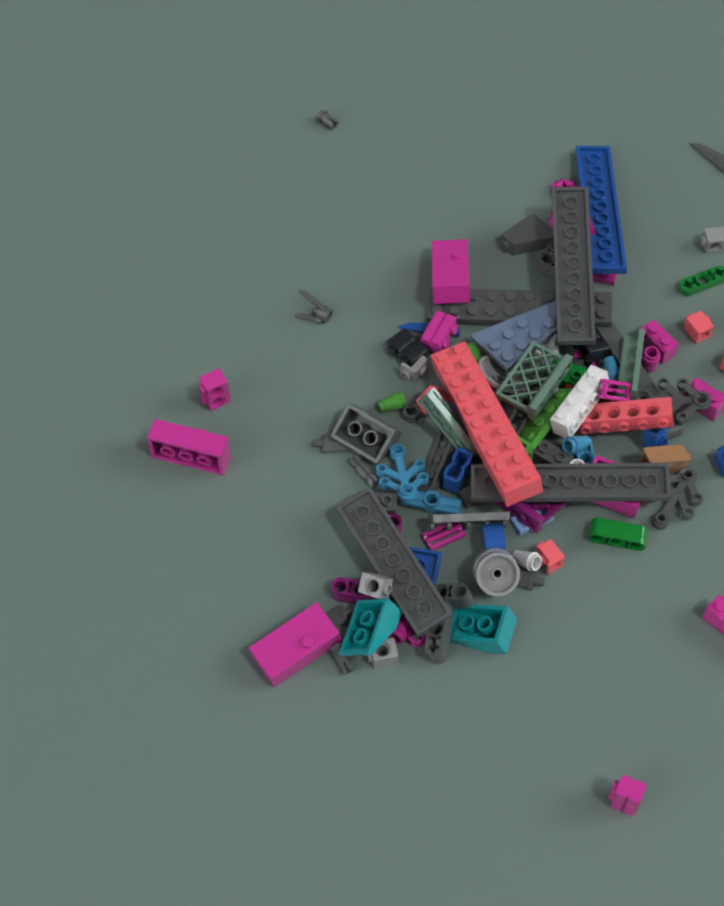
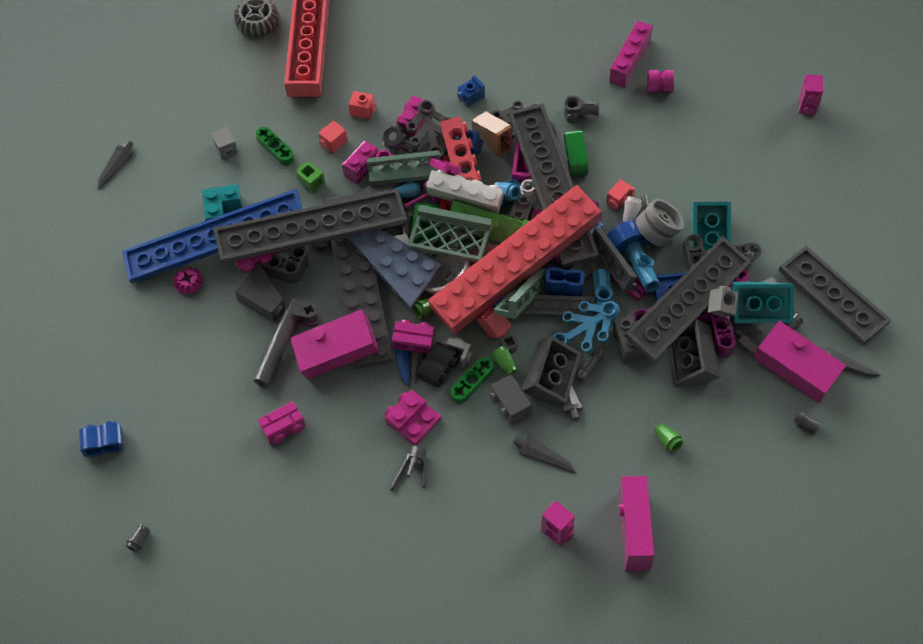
camera: 105 degrees left, 0 degrees up
(233, 631) = (807, 422): none -> dark grey pin
(263, 508) = (669, 438): none -> bright green cone
(290, 691) = (850, 363): none -> dark grey bar
(295, 404) = (537, 450): none -> dark grey bar
(337, 558) = (694, 356): none -> dark grey slope
(349, 390) = (510, 399): none -> dark grey brick
(362, 716) = (834, 295): none -> dark grey plate
(363, 319) = (412, 417): none -> dark pink plate
(383, 366) = (471, 388): none -> green beam
(391, 225) = (281, 423): none -> dark pink brick
(423, 108) = (101, 439): none -> blue brick
(440, 542) = (642, 267): none -> dark azure piece
(498, 256) = (294, 312): none -> dark grey axle
(640, 220) = (221, 200): none -> teal brick
(652, 297) = (310, 176): none -> bright green brick
(677, 556) = (577, 108): none -> dark grey connector
(678, 371) = (400, 140): none -> dark grey connector
(693, 646) = (660, 81): none -> dark pink wheel

